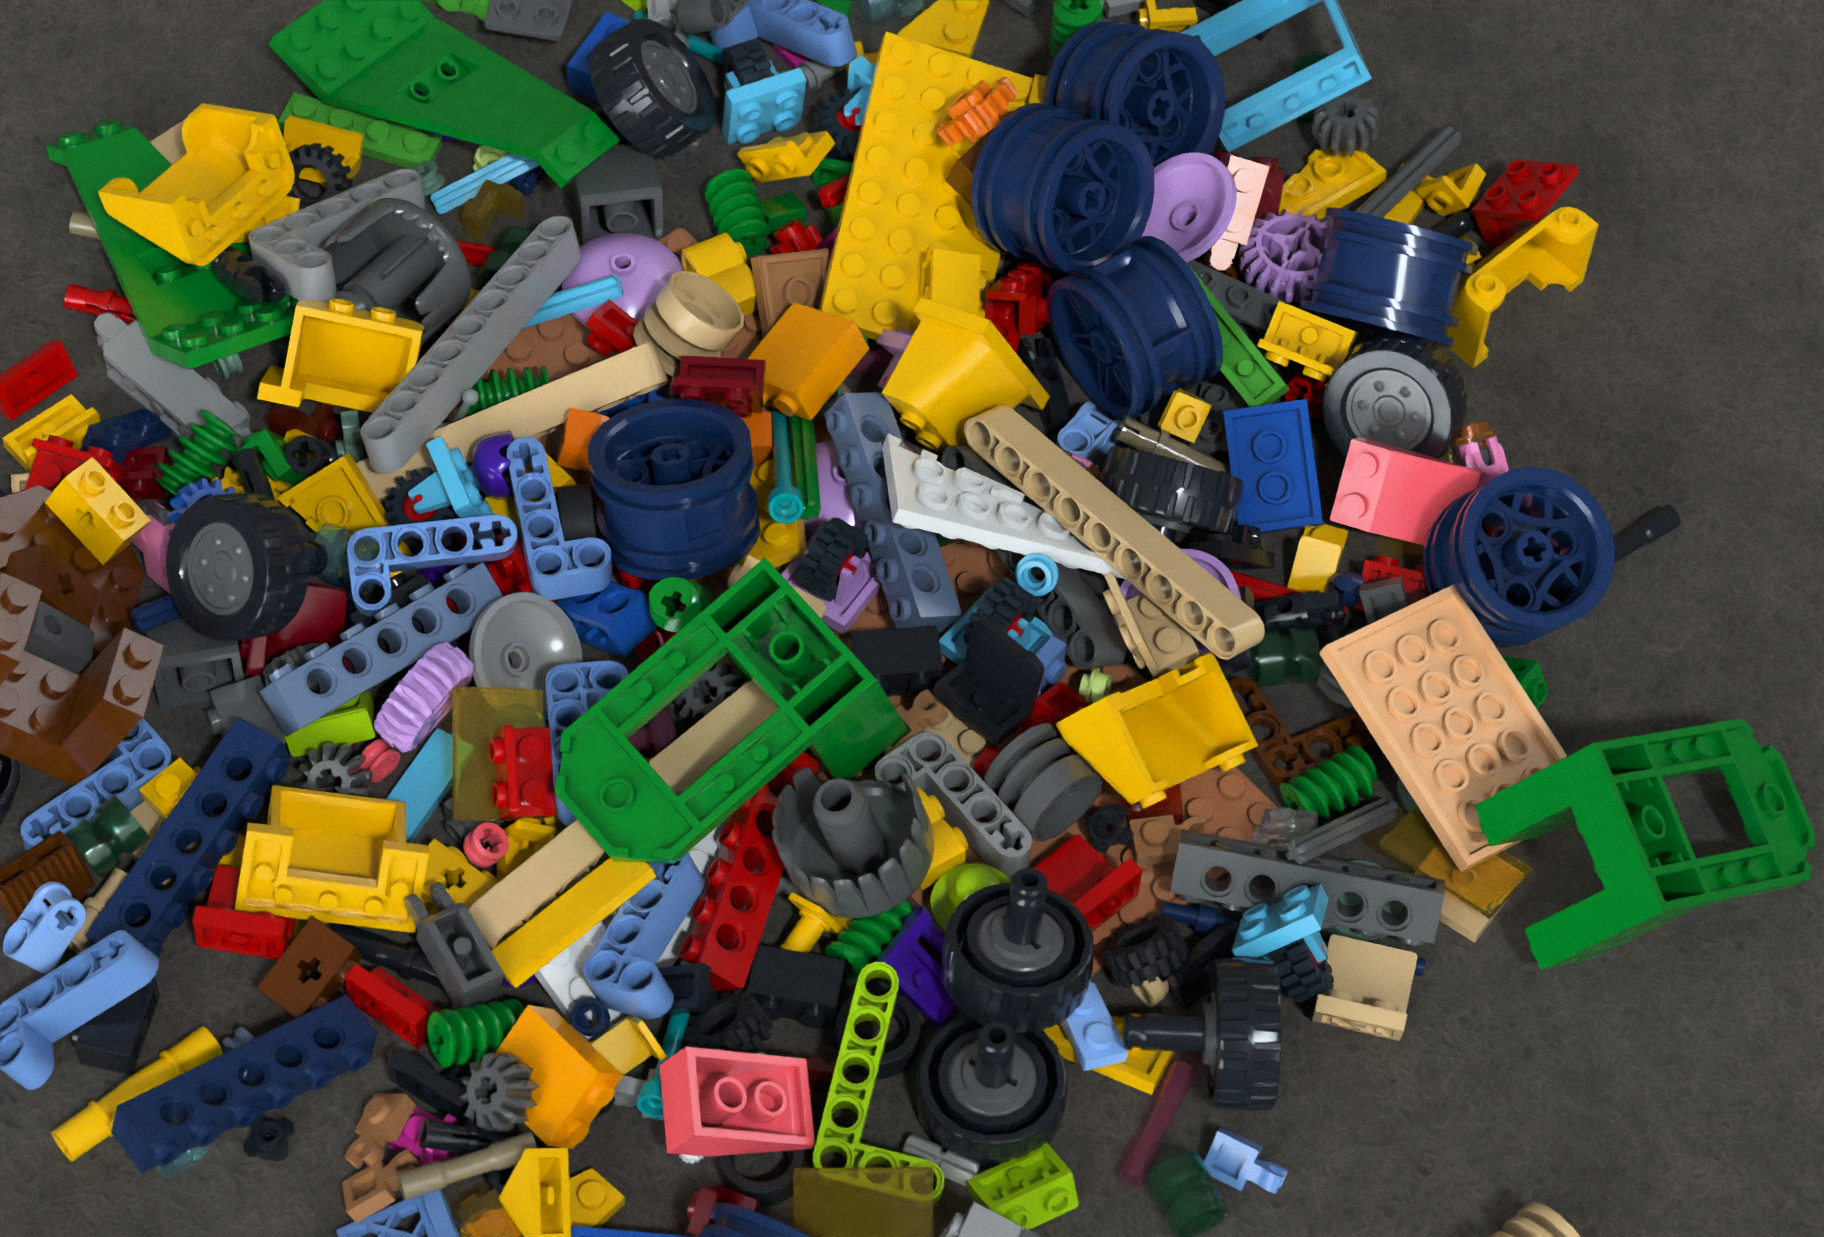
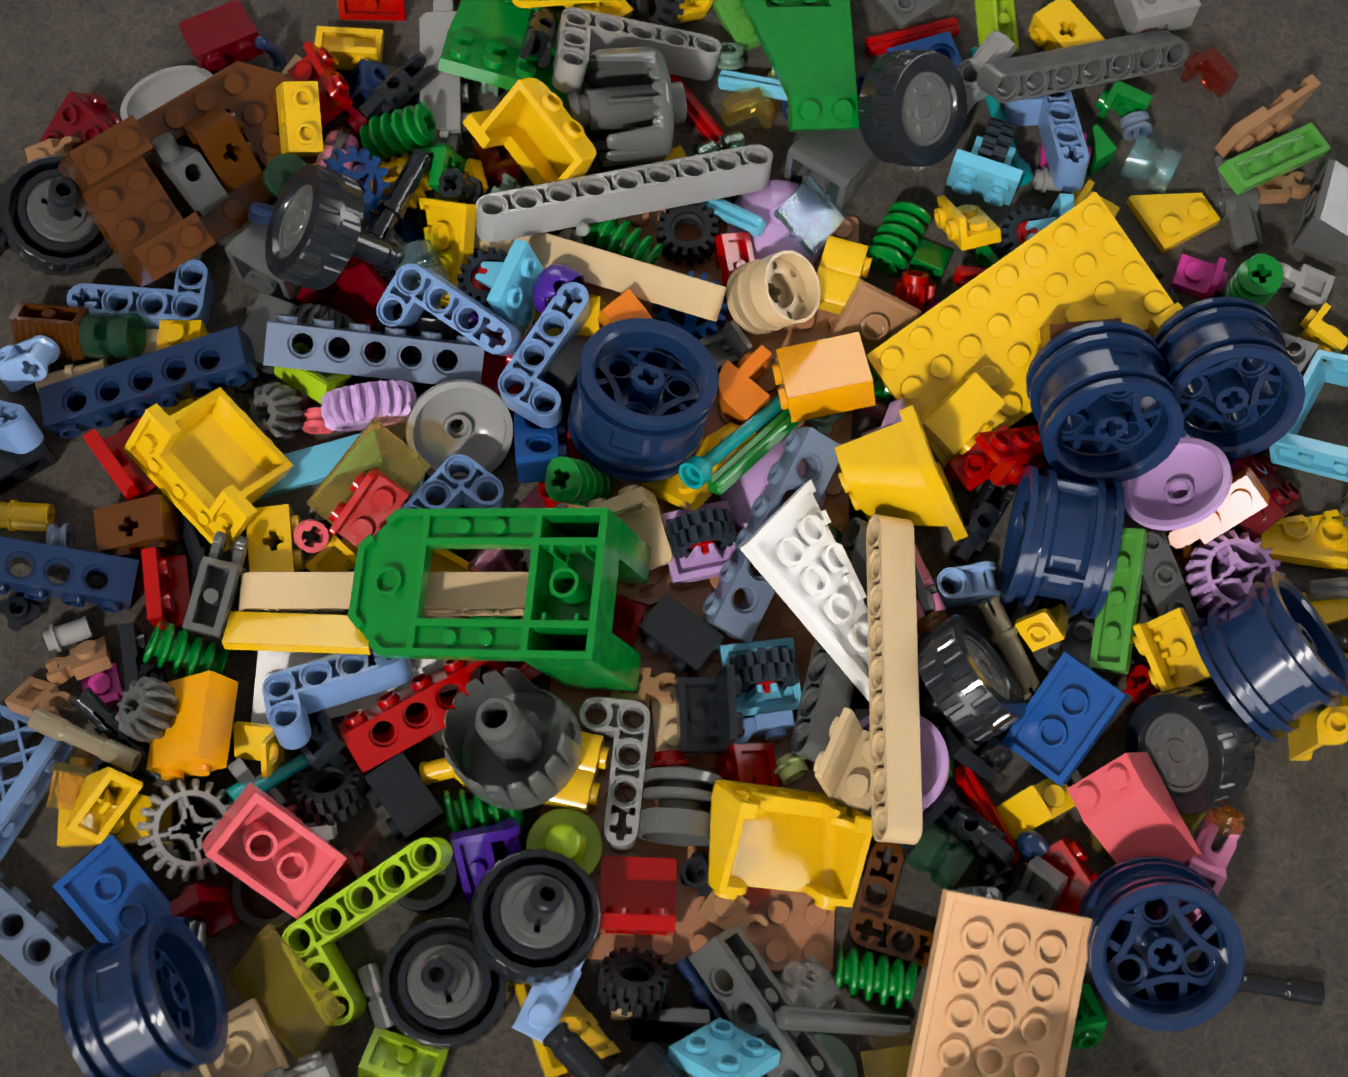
camera: 45 degrees right, 15 degrees up
(133, 573) = (278, 172): none -> clear green wheel
(153, 423) = (399, 87): none -> black hinge
(333, 1127) = (67, 633): none -> light grey pin
(555, 327) = (687, 250): none -> black tyre
(557, 59) = (880, 43): none -> red axle
(583, 1023) = (253, 707): dark blue hinge -> none
(629, 1167) = (185, 812): none -> light grey gear
(647, 246) = (809, 216): none -> clear light blue piece
(722, 381) = (749, 352): dark red bracket -> none
(977, 111) = (1096, 299): orange gear -> none
(1024, 54) = (1198, 276): none -> dark pink bracket
(1028, 582) = (814, 661): medium azure plate -> none

